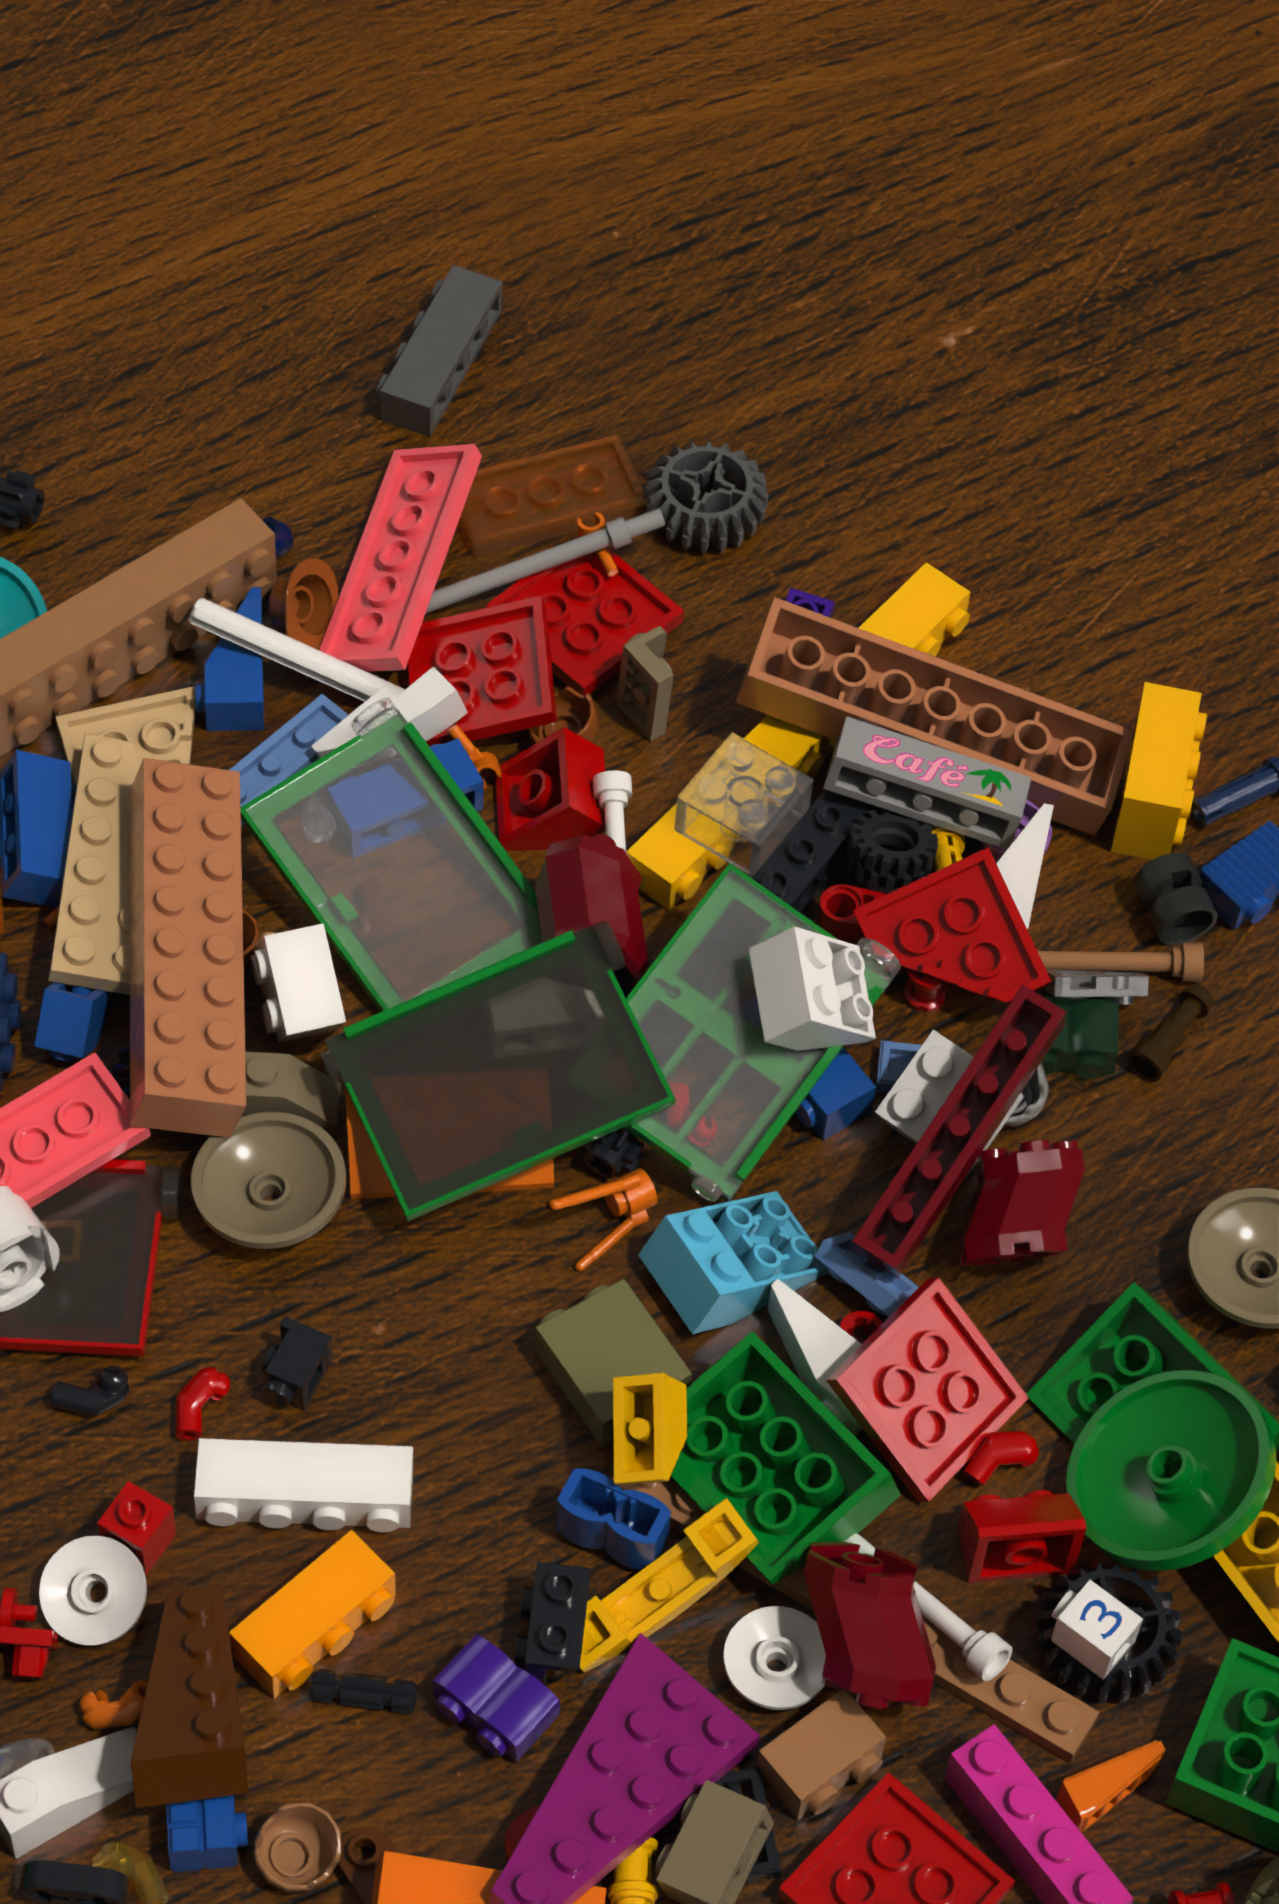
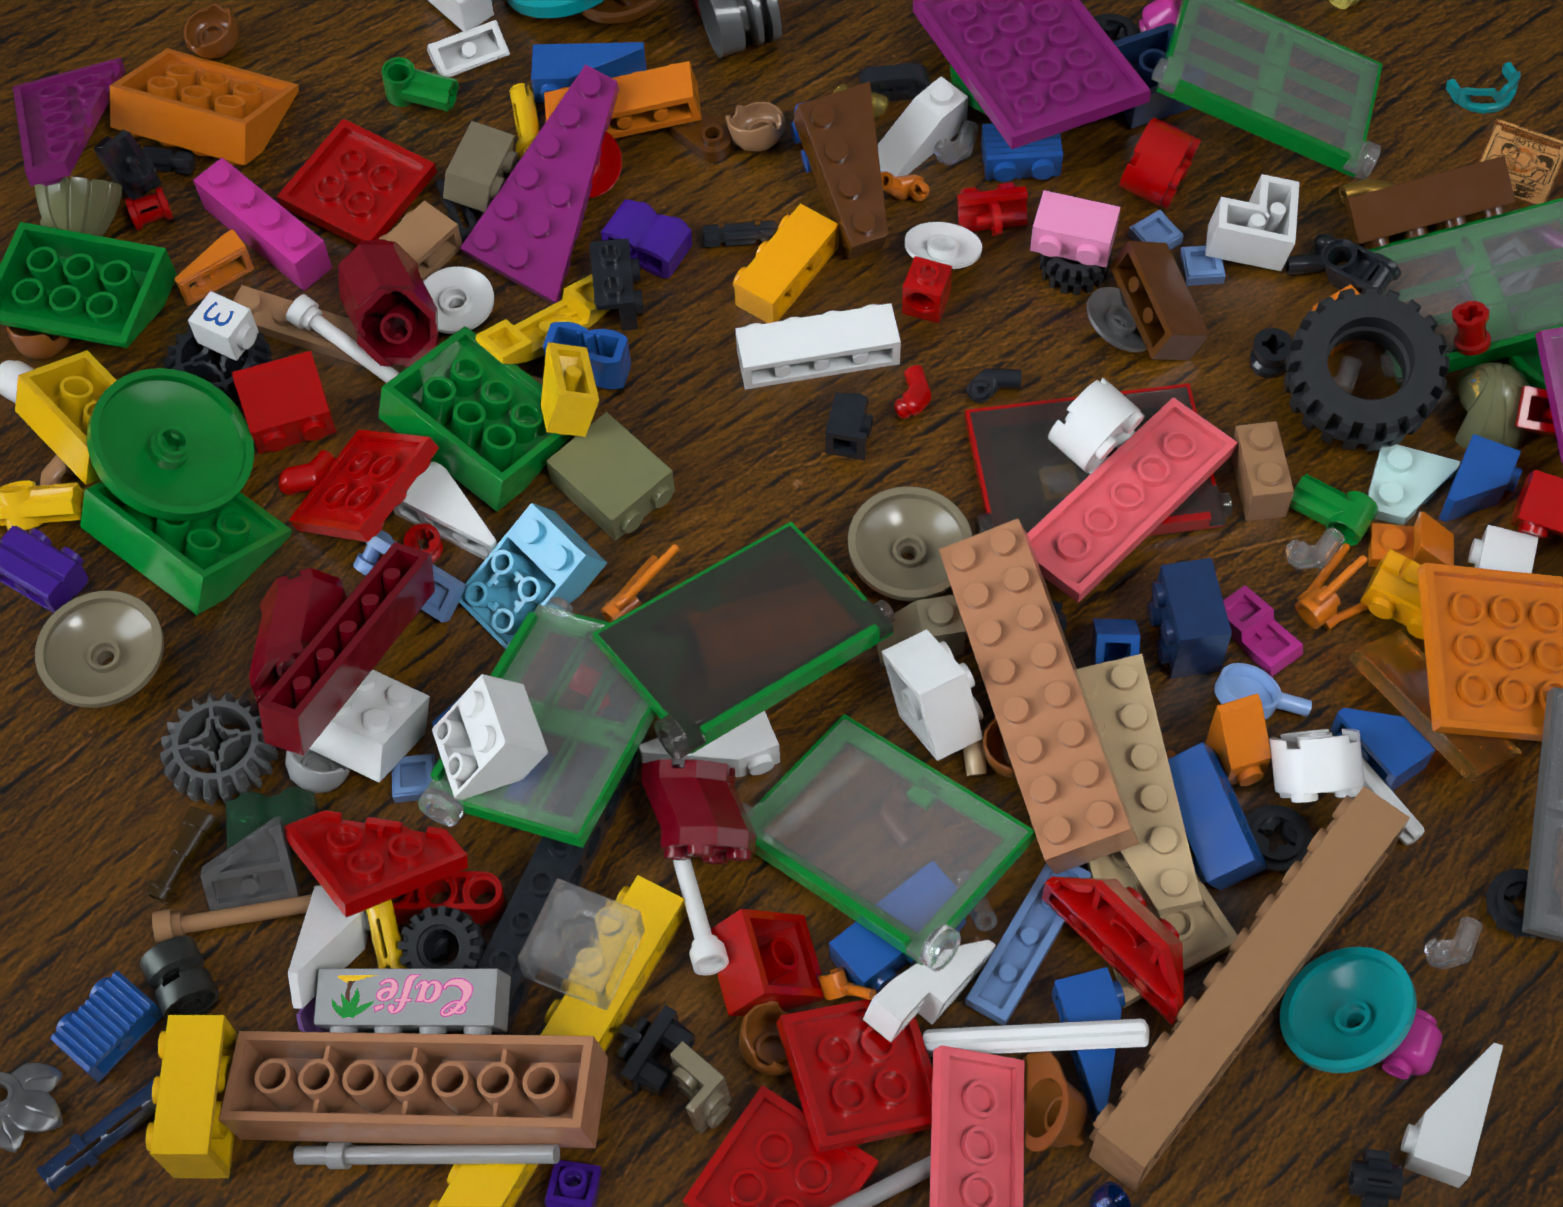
camera: 175 degrees right, 5 degrees up
(171, 713) = (1125, 936): none -> red wedge
(691, 747) = (642, 1069): none -> black hips
(1148, 1117) = (197, 742): none -> dark grey gear

